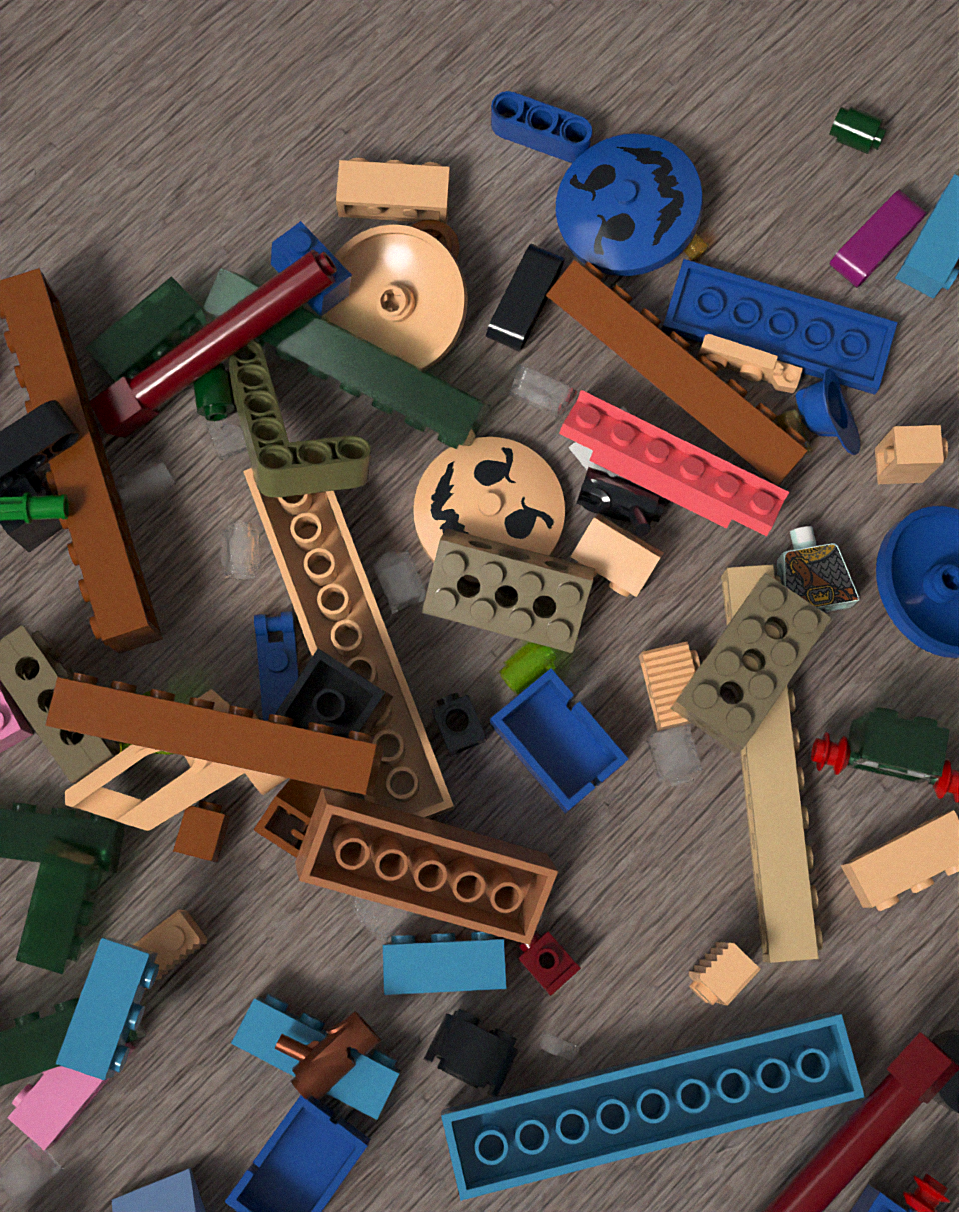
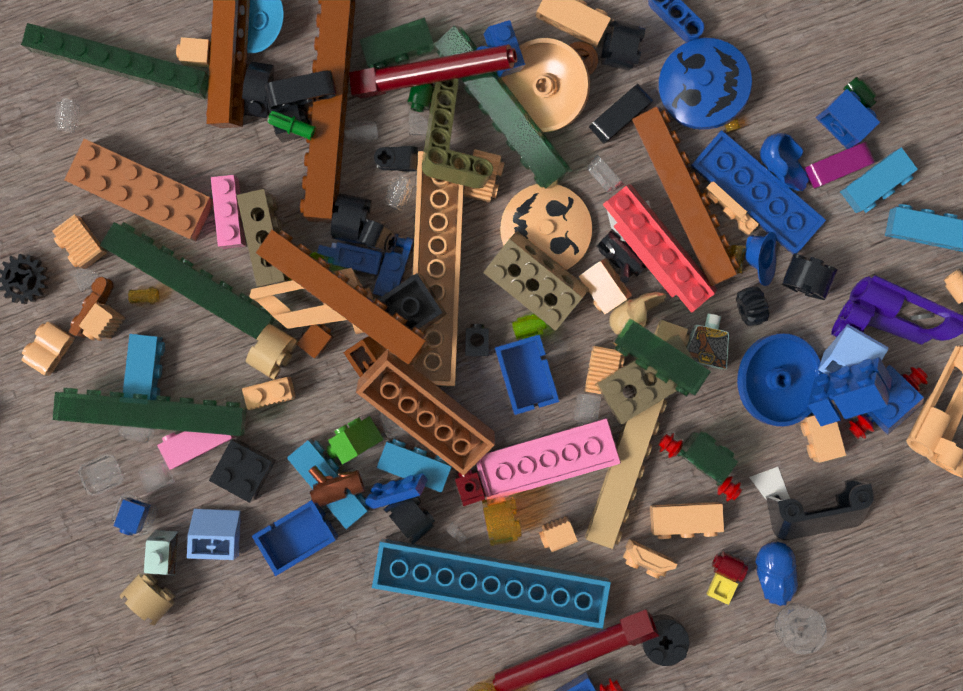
camera: 35 degrees right, 10 degrees up
(60, 905) = (226, 347): clear green brick -> none
(108, 1009) = (231, 414): dark azure brick -> none
(137, 880) = (271, 351): none -> tan brick
(166, 1098) = (242, 470): none -> black brick
(180, 617) = (349, 217): none -> black brick
(219, 499) = (402, 158): none -> black piece
(223, 674) = (352, 257): none -> blue hinge
(232, 624) = (377, 236): none -> black piece
(328, 965) = (353, 440): none -> bright green brick
(373, 493) = (490, 189): none -> light nougat brick
(399, 580) = (479, 247): clear brick -> none
(432, 1019) = (396, 491): none -> blue plate
(483, 197) = (622, 45): none -> black brick
(621, 992) = (500, 520): none -> clear yellow brick
(651, 861) = (548, 459): none -> bright pink plate
(678, 577) = (635, 309): none -> tan hair
(758, 616) = (661, 357): none -> clear green brick
(787, 259) = (781, 157): none -> blue hair
(852, 490) = (752, 306): none -> black gear
(859, 166) = (848, 119): none -> blue brick
(892, 951) = (642, 556): none -> light nougat slope
(910, 454) = (794, 300): light nougat brick -> none
(915, 404) = (809, 277): none -> black brick

